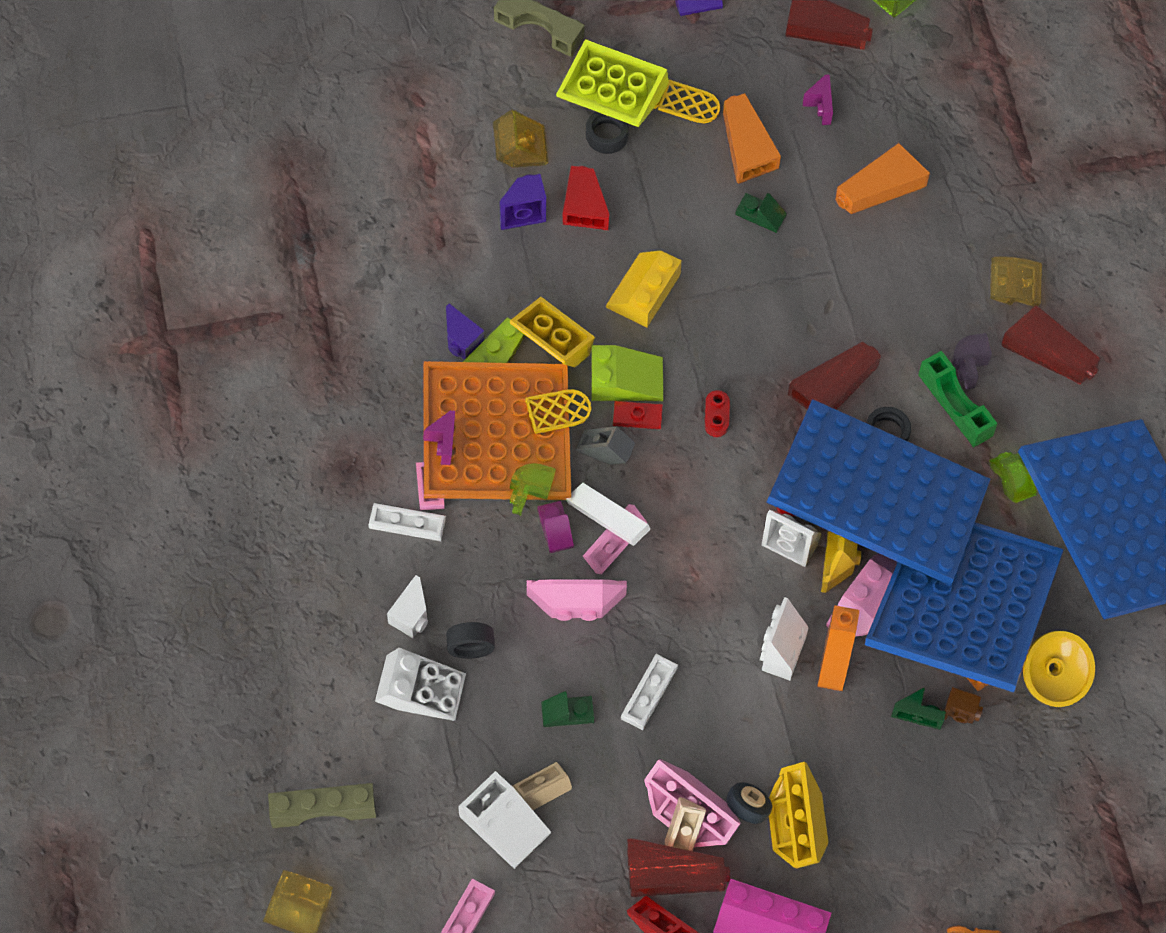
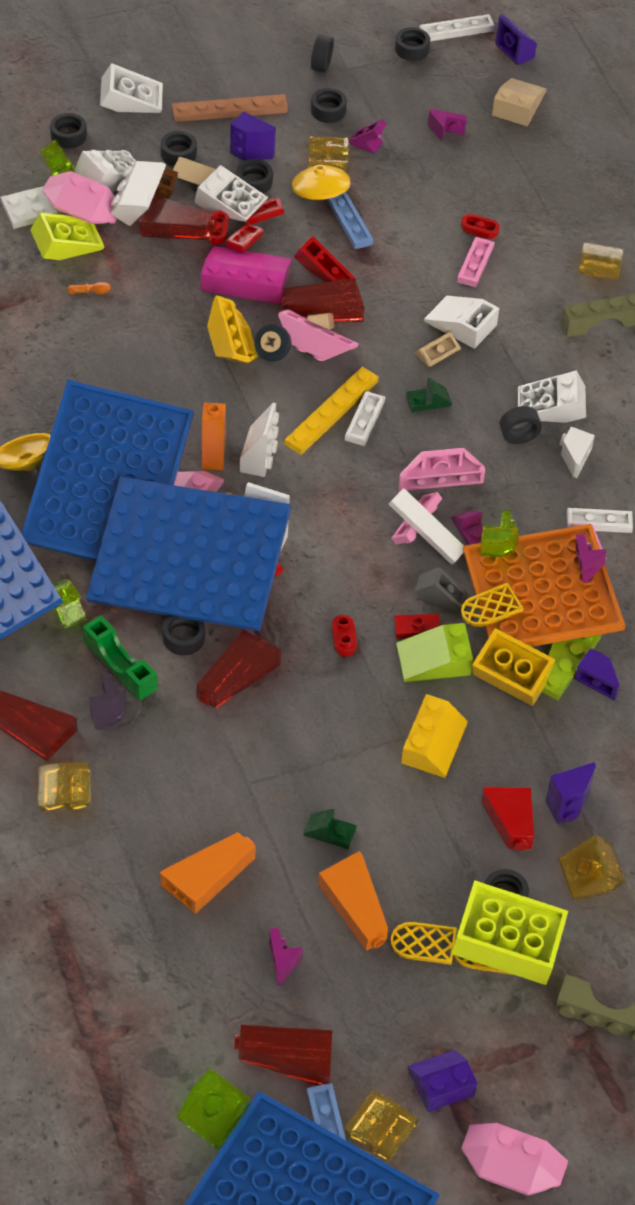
camera: 170 degrees right, 10 degrees down
(687, 707) = (331, 410): none -> yellow plate

